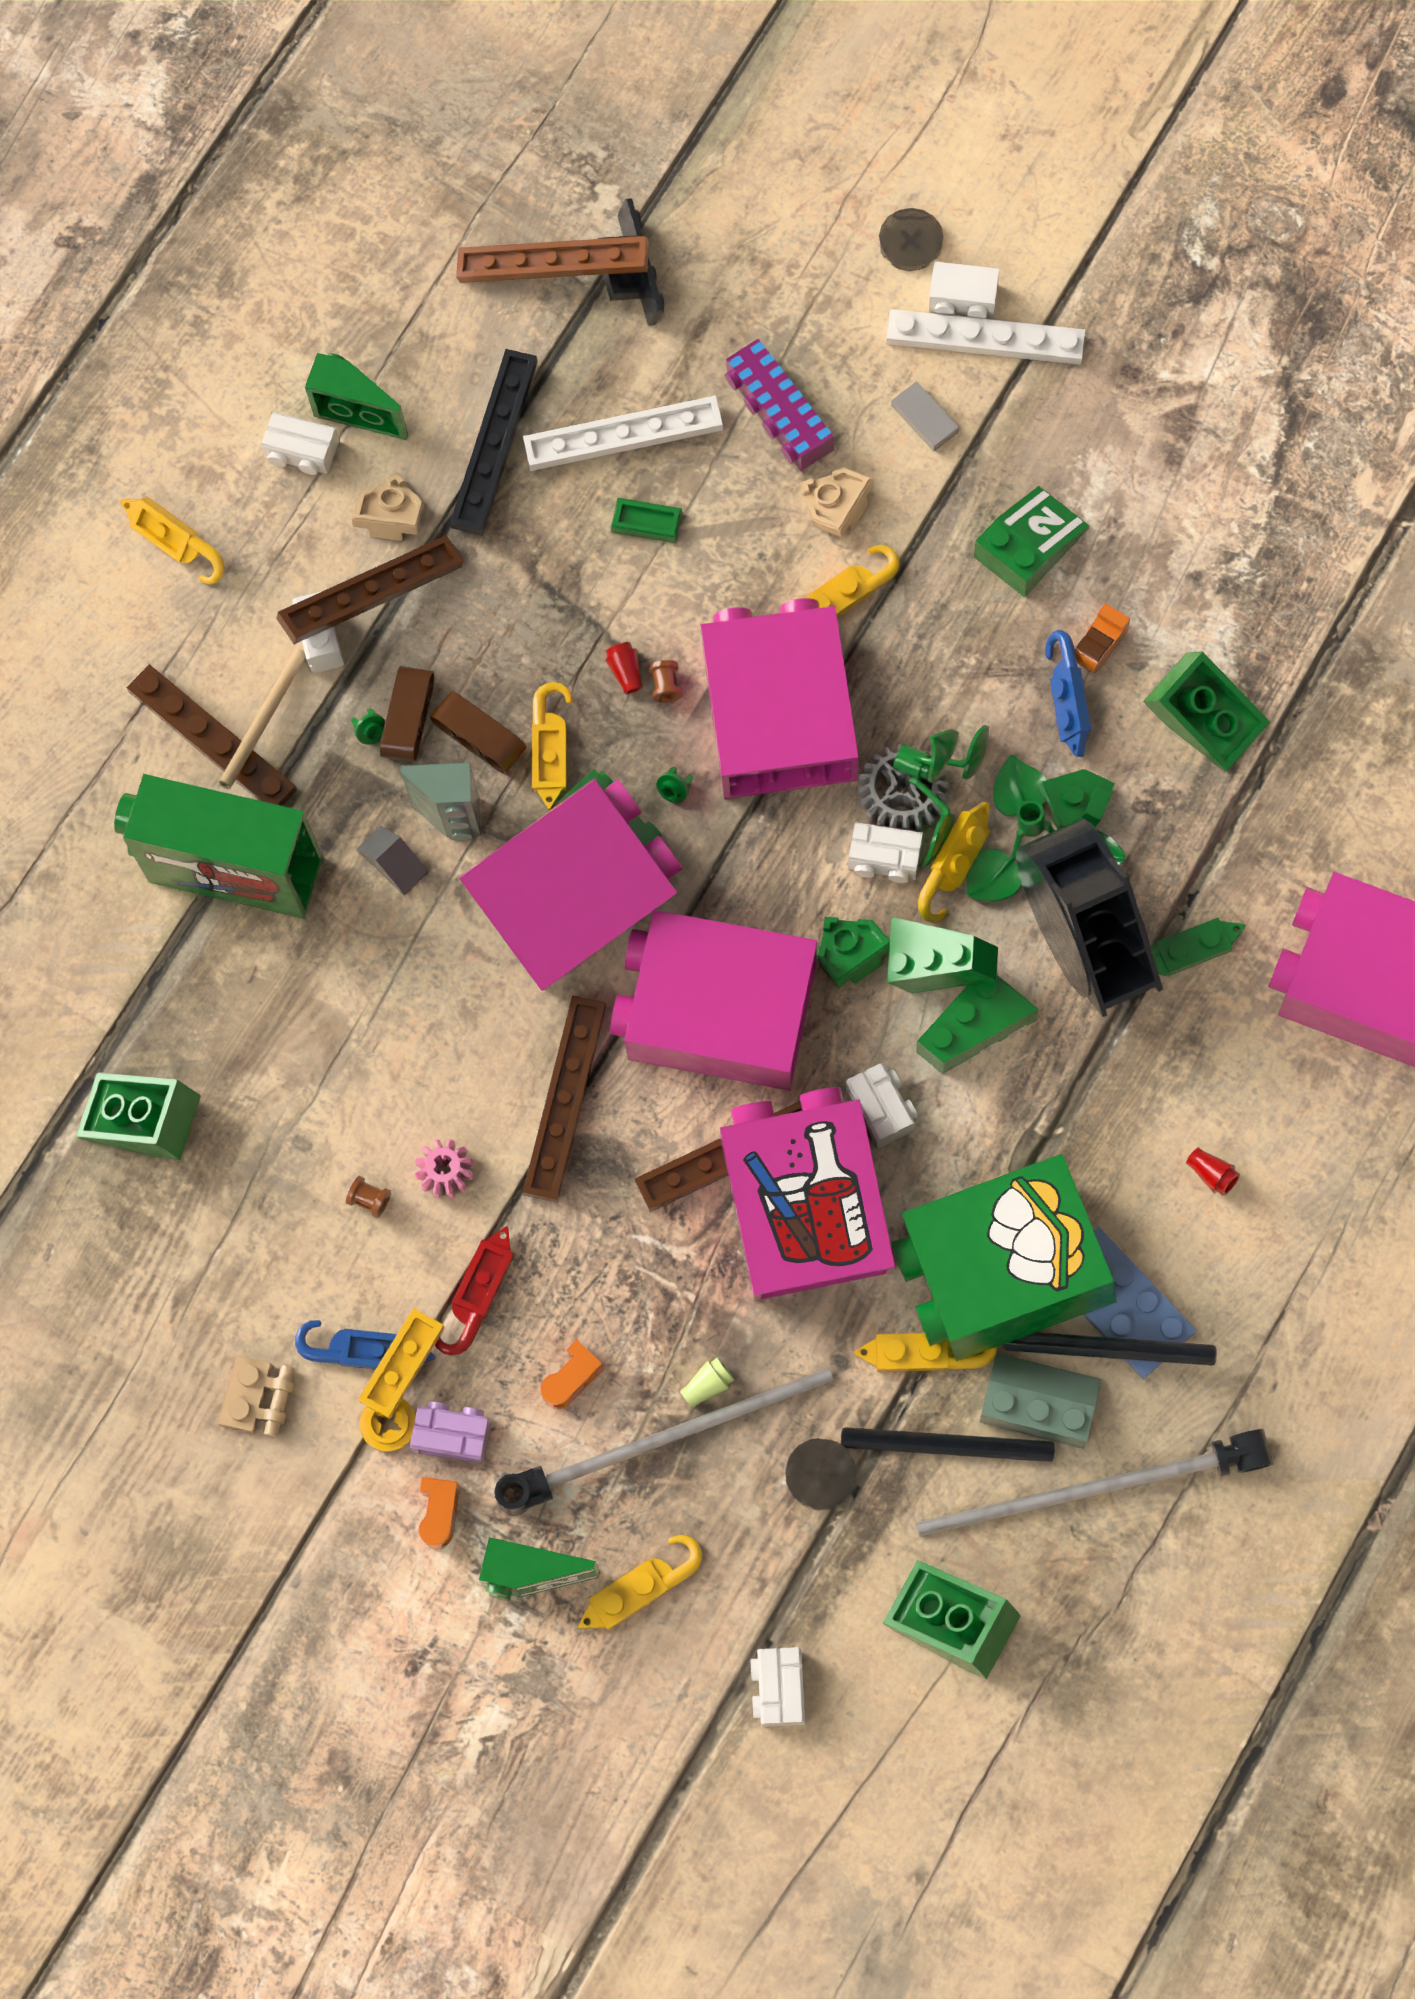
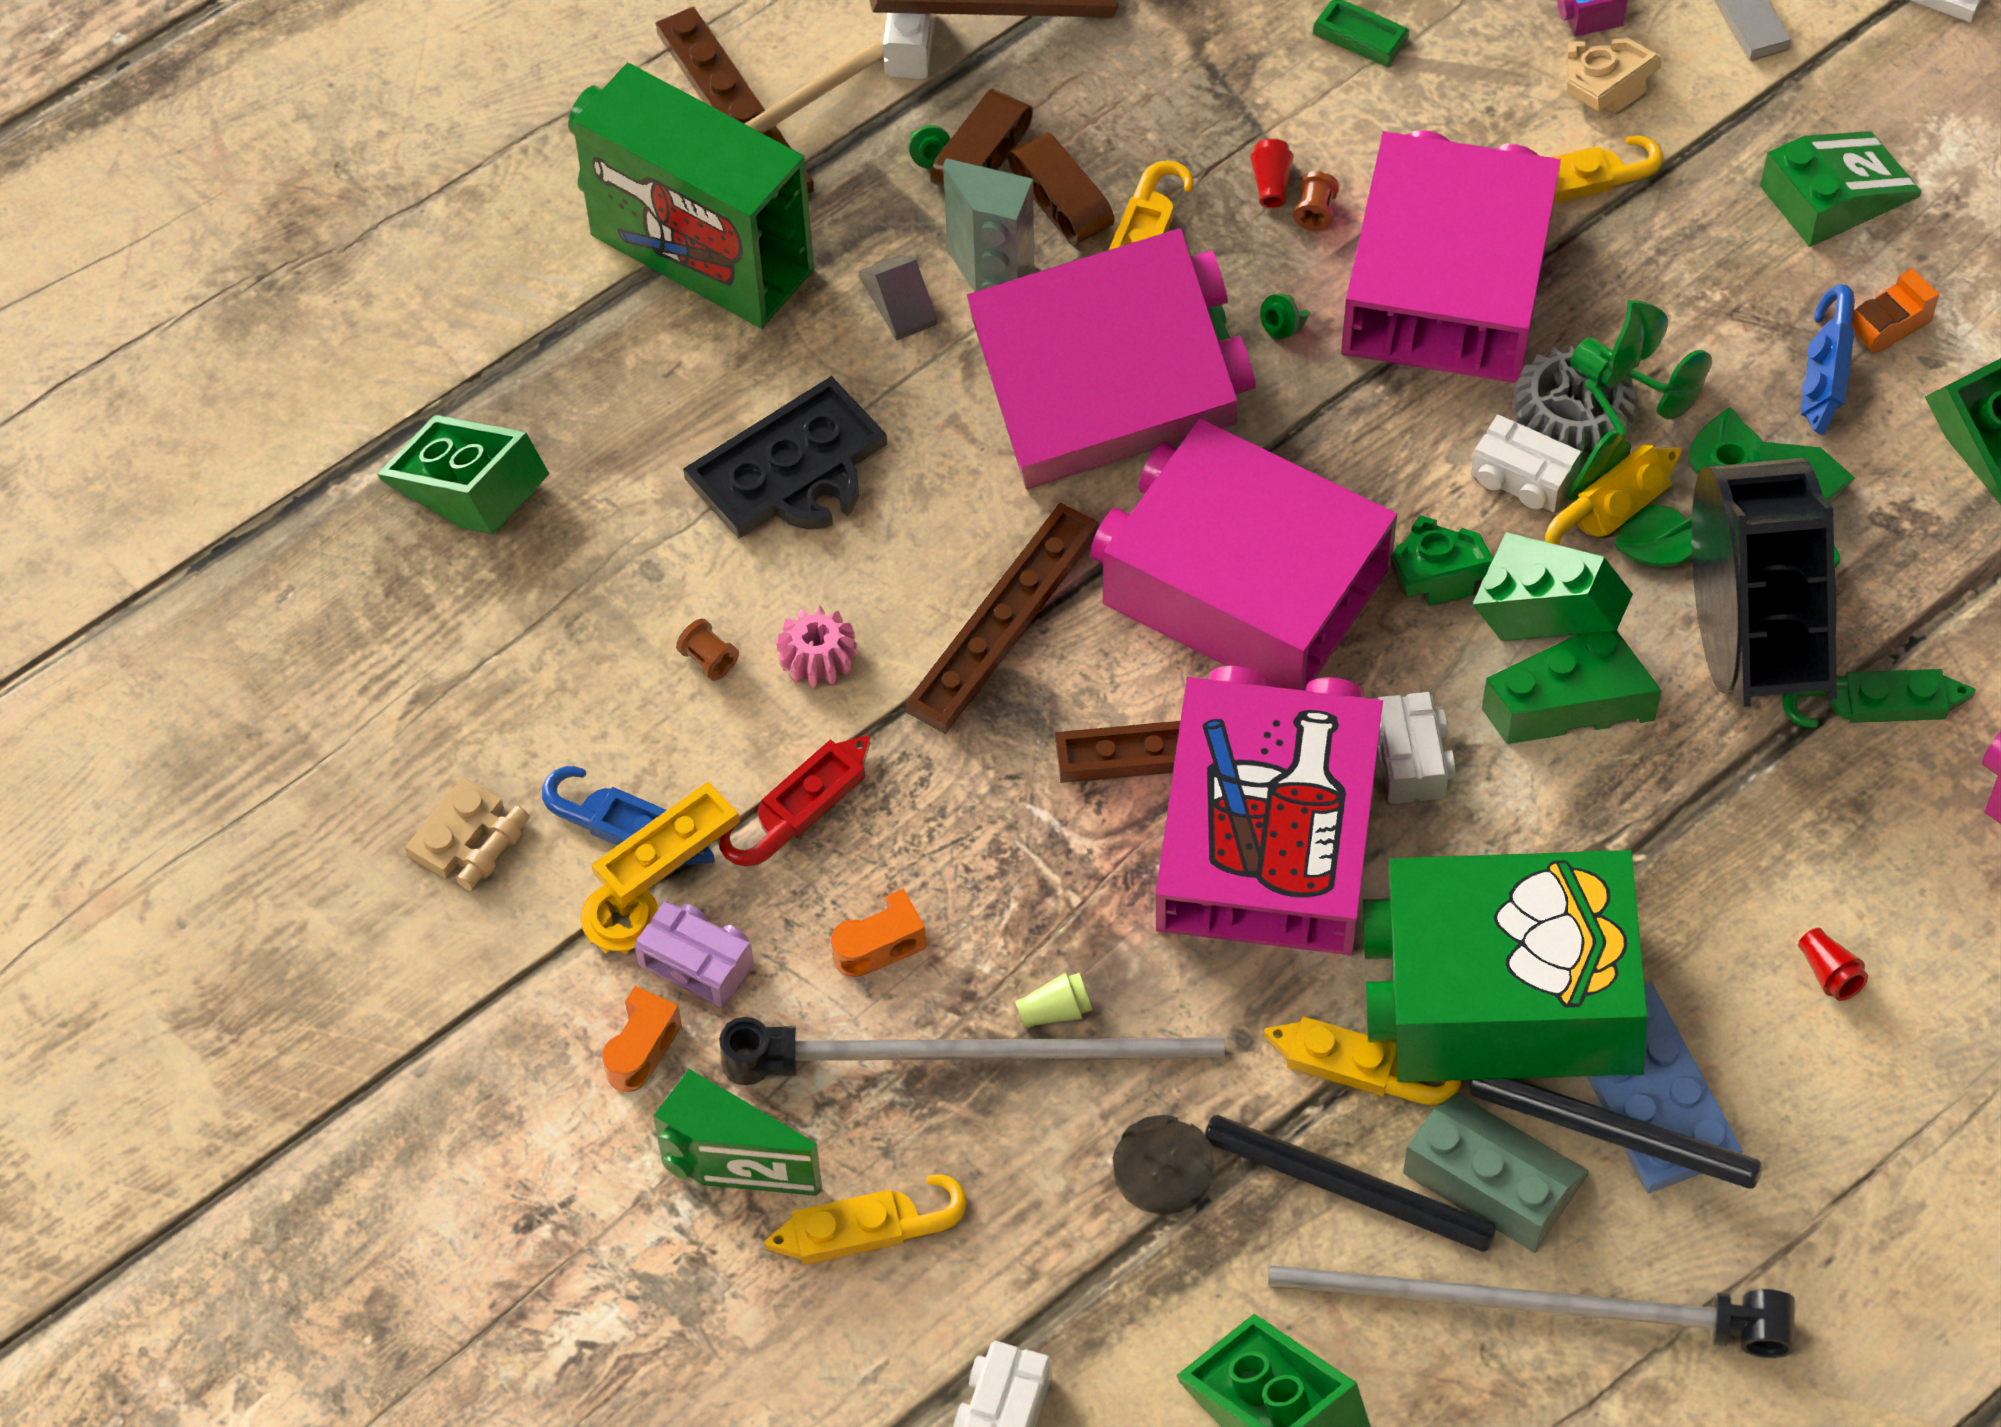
camera: 15 degrees right, 15 degrees down
(368, 1026) = (790, 462): none -> black plate

